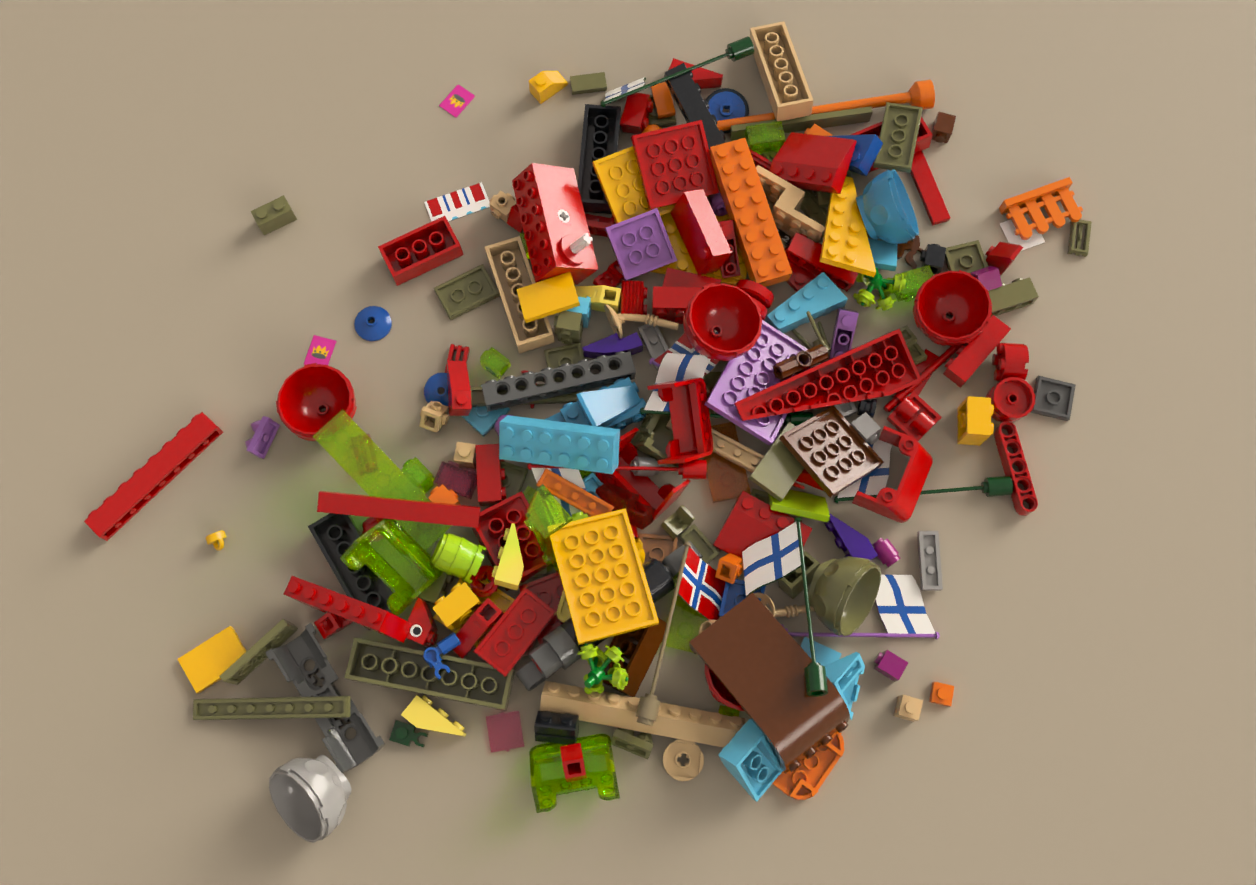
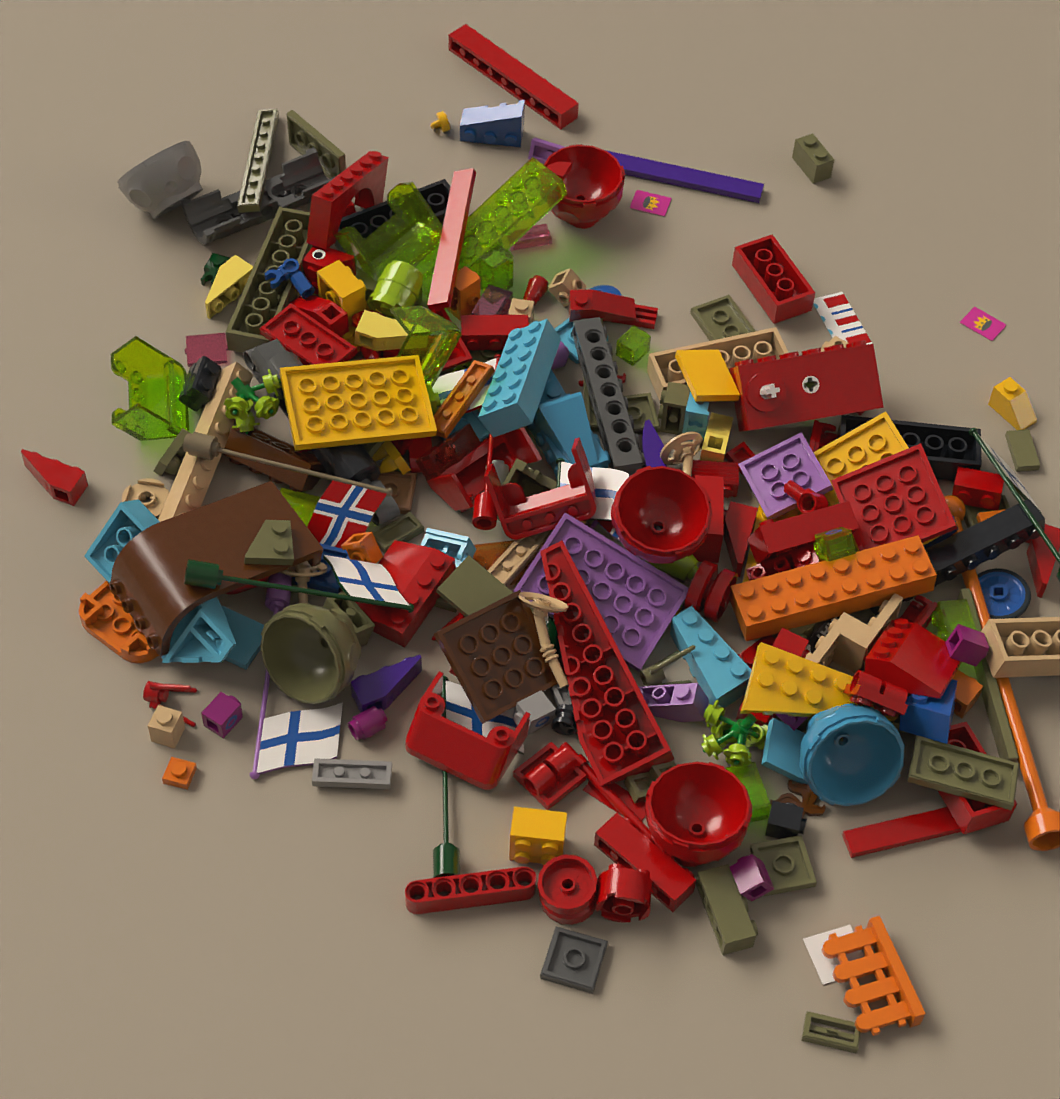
camera: 90 degrees right, 20 degrees down
(211, 659) = (323, 120): yellow tile -> none
(227, 489) = (494, 125): none -> blue wedge
(289, 327) = (690, 178): none -> dark purple tile
(315, 418) = (560, 169): none -> red tile
(376, 330) = (685, 246): blue dish -> none
(433, 445) = (536, 288): none -> red cone
(573, 762) = (157, 386): red slope -> none
(668, 842) = (58, 479): none -> red slope
(669, 227) = (805, 497): none -> red axle
(678, 522) = (425, 507): olive bracket -> none
(721, 501) = (450, 544): none -> medium azure hinge
(722, 205) = (834, 544): none -> clear neon green brick
(762, 630) = (272, 544): none -> olive wing
(792, 126) = (967, 645): none -> magenta brick
(792, 365) = (631, 648): reddish brown piece -> none
(802, 417) = (542, 605): none -> tan dish
(802, 505) = (432, 615): lime tile -> none
(859, 182) = (884, 696): none -> red plate
(875, 720) = (158, 692): none -> red plant
(943, 127) = (997, 856): reddish brown brick -> none
(1002, 255) = (788, 908): red slope -> none

